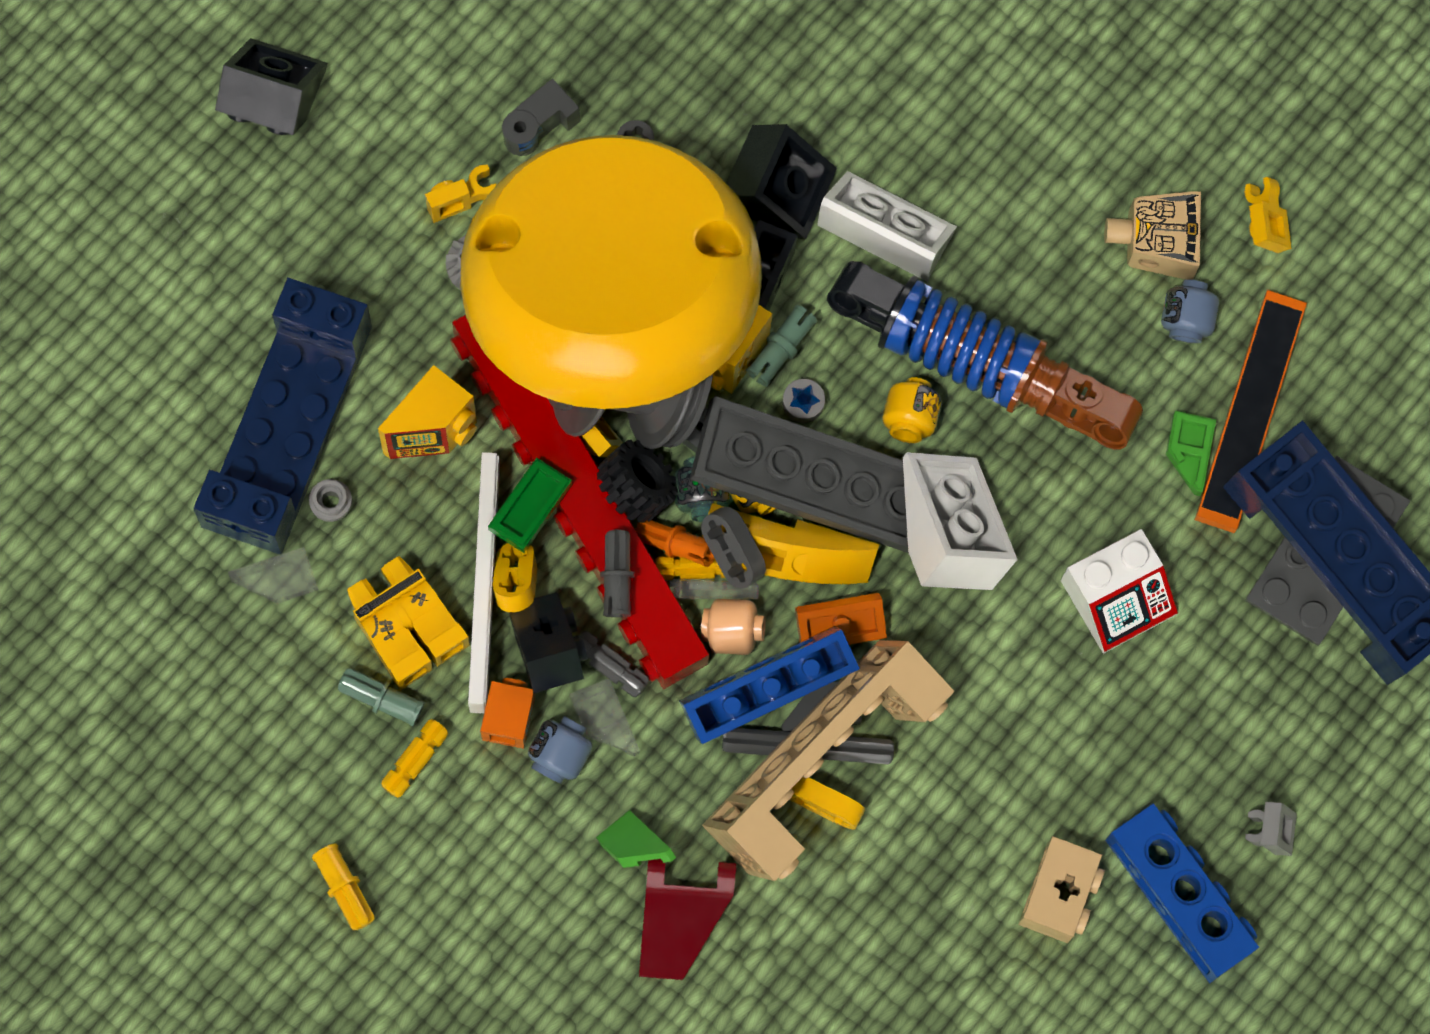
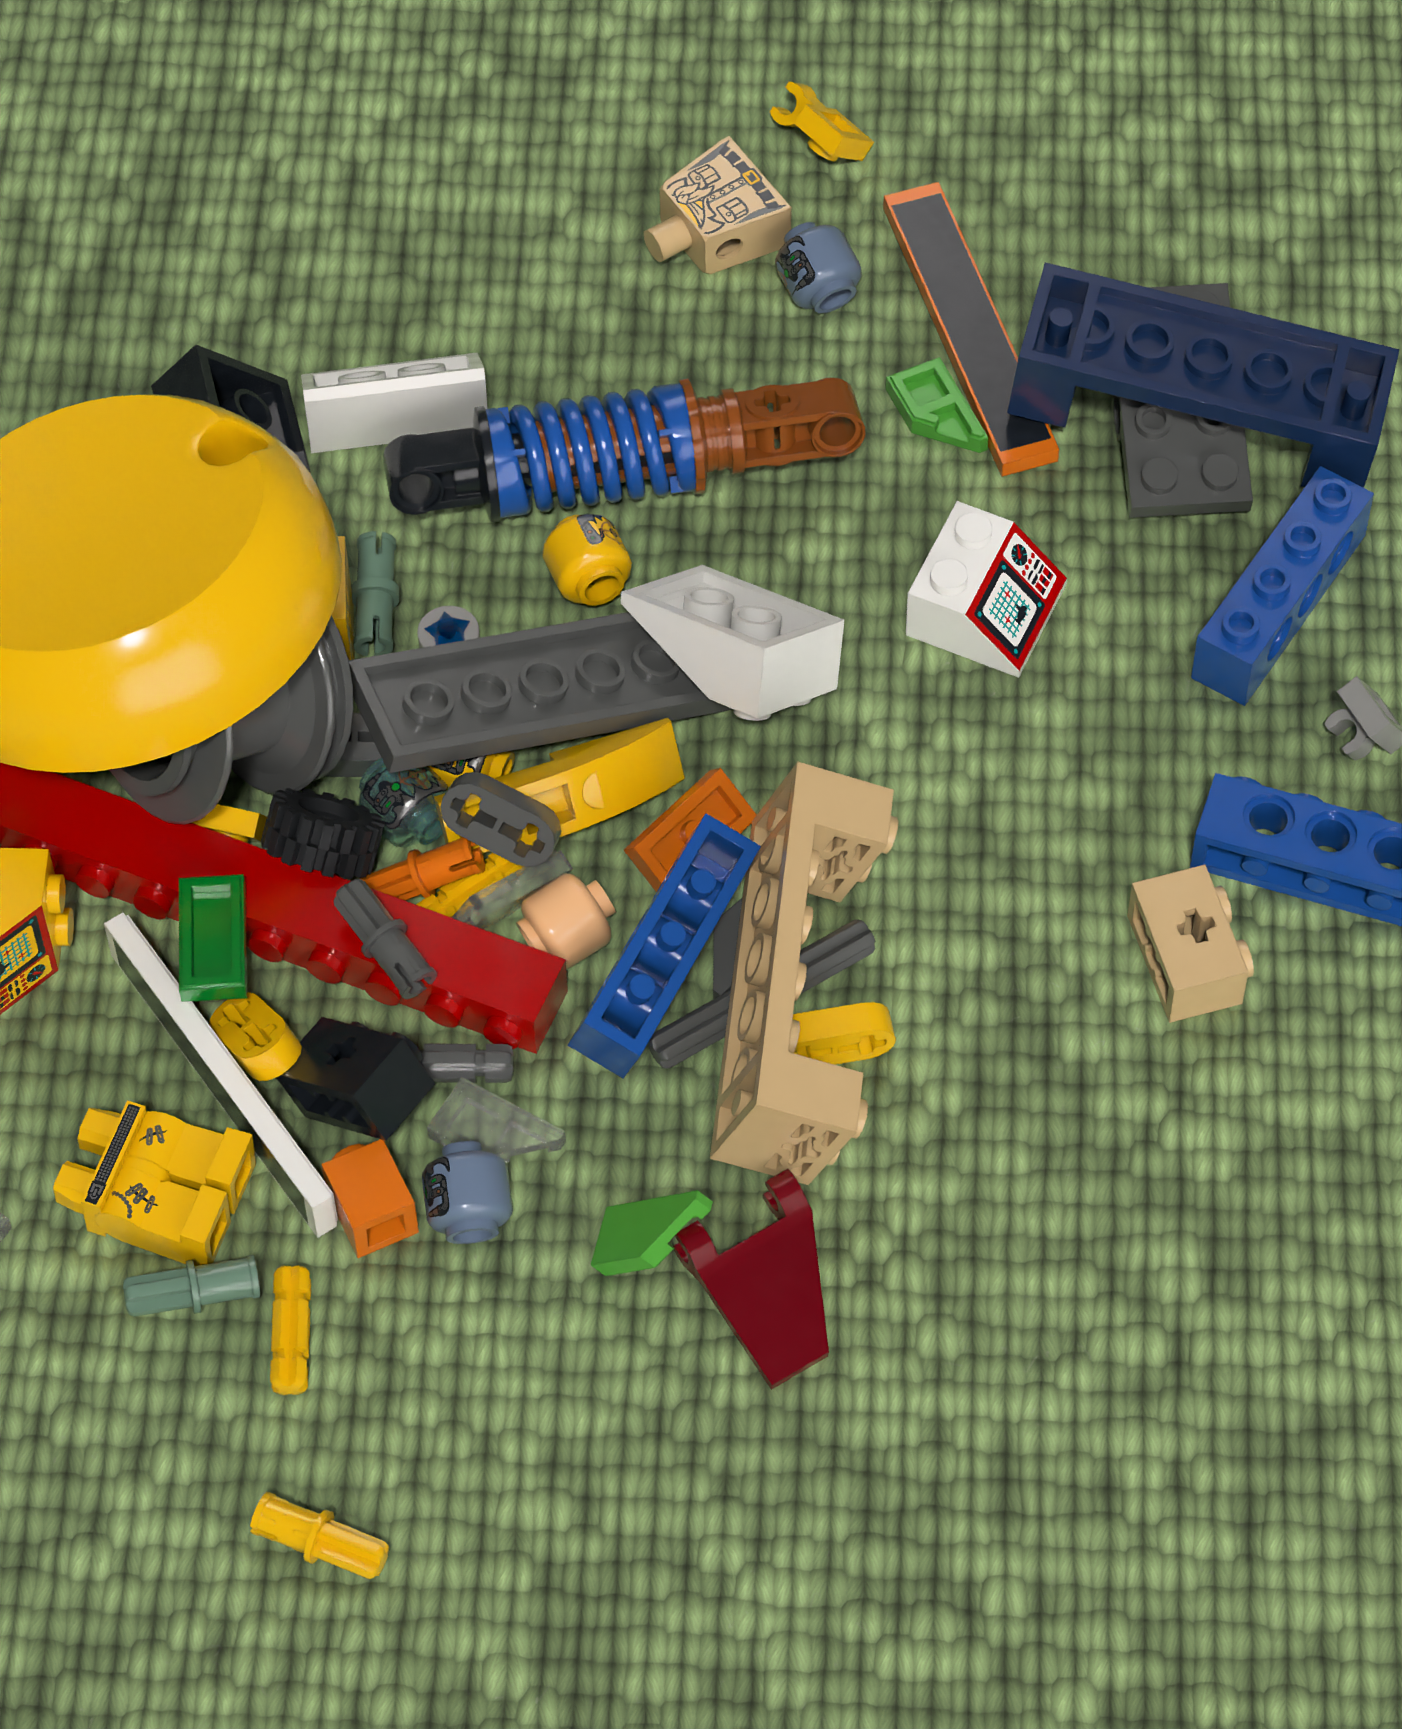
camera: 30 degrees left, 15 degrees down
(1292, 710) = (1281, 586): none -> blue brick

